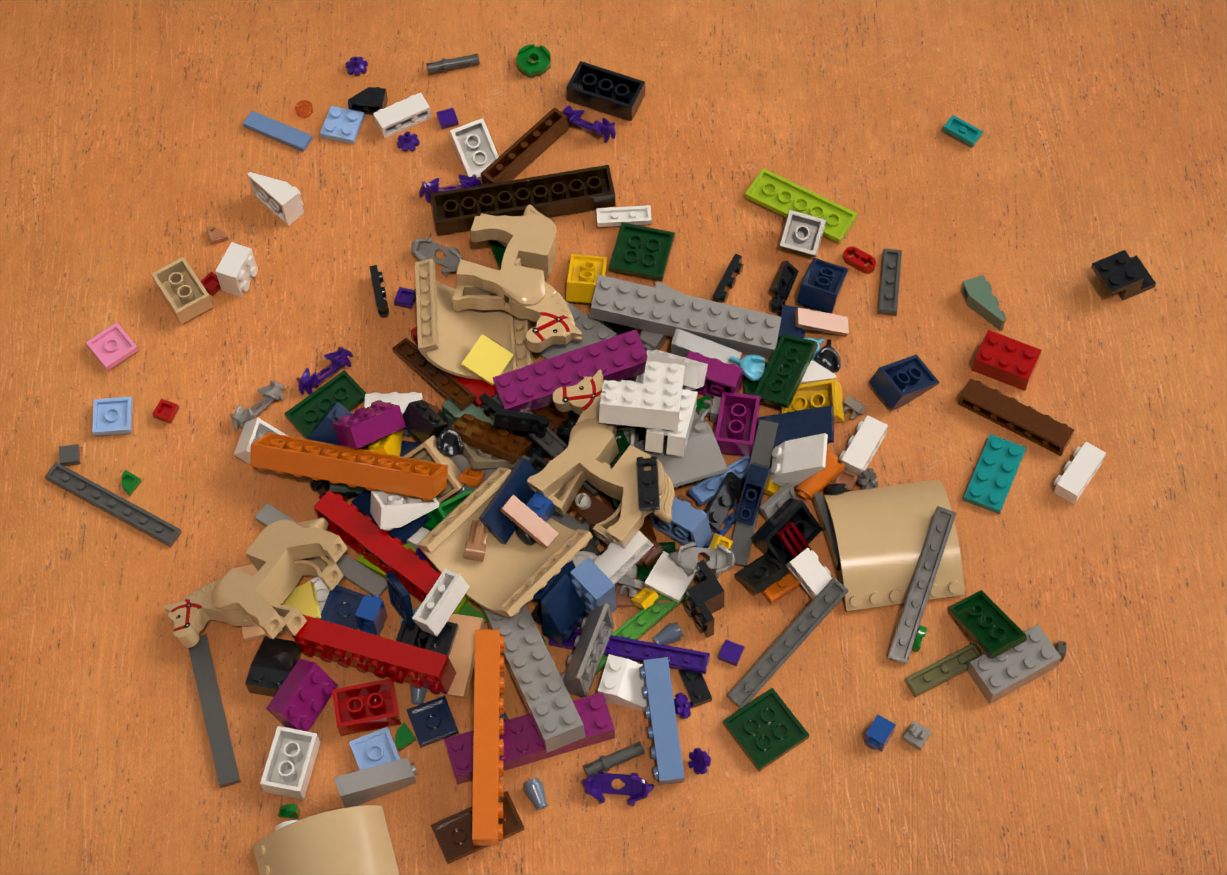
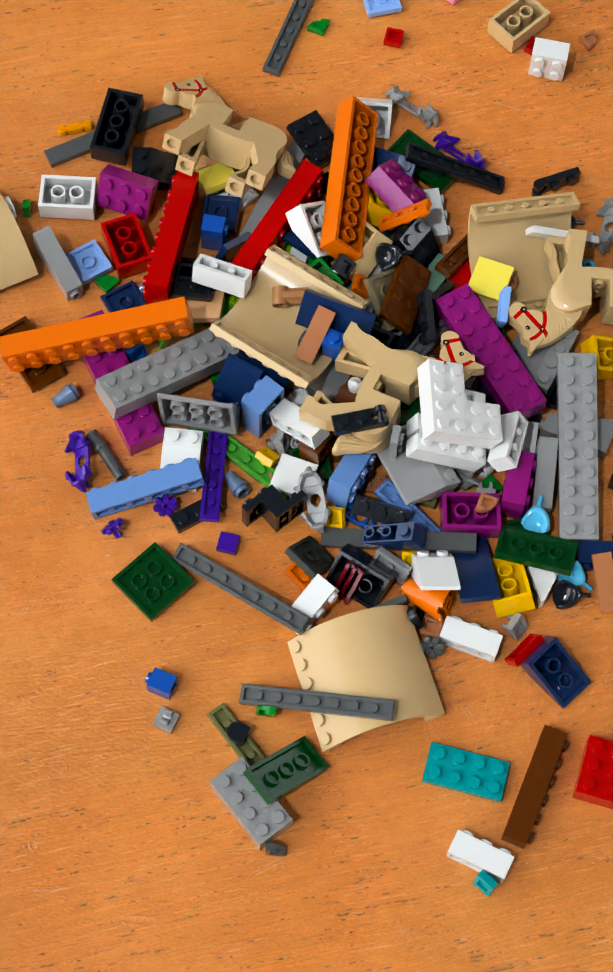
camera: 75 degrees right, 5 degrees up
(195, 750) = (75, 127): none -> light orange axle
(214, 697) = (117, 126): none -> black brick
(276, 503) = (313, 138): none -> black plate
(348, 373) = (454, 168): none -> black tile
(406, 417) = (405, 215): none -> orange plate
(449, 293) = (543, 232): none -> white tile
(453, 485) = (343, 266): none -> black plate
(524, 350) = (503, 306): none -> light blue tile
(669, 461) = (396, 441): none -> light grey plate
(732, 403) = (486, 503): none -> nougat tile
(880, 402) = (524, 649): none -> red tile
(940, 666) = (238, 732): none -> black tile
(1105, 472) = (485, 882): none -> teal plate

